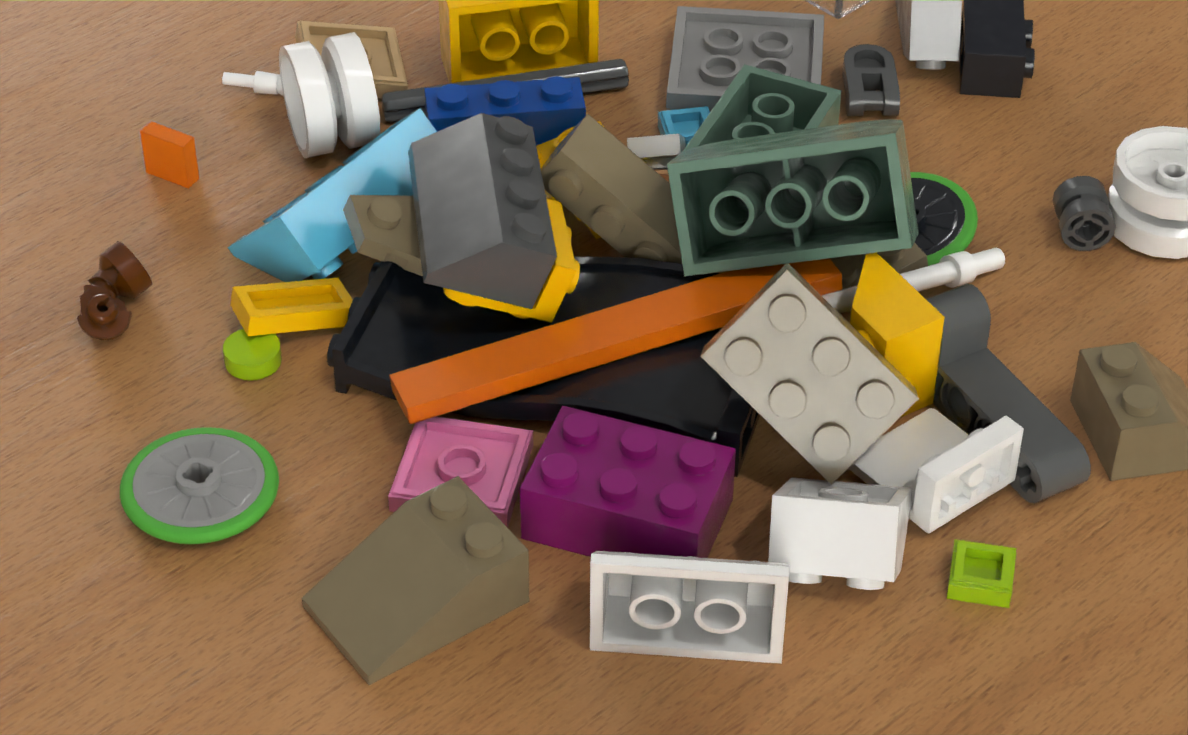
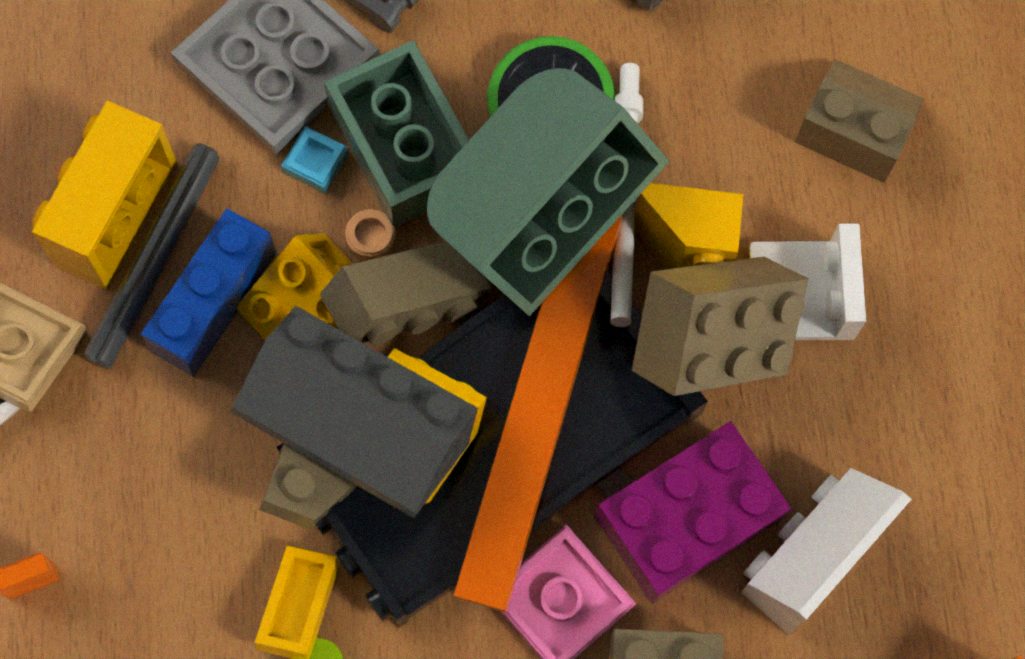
camera: 55 degrees left, 30 degrees up
(312, 228) = (209, 482): medium azure wedge -> none
(329, 94) = (81, 410): white wheel -> none
(657, 149) = (334, 206): white plate -> none
(839, 531) = (829, 399): white slope -> none
(979, 390) = (793, 204): dark grey beam -> none
(981, 573) = (911, 335): lime tile -> none

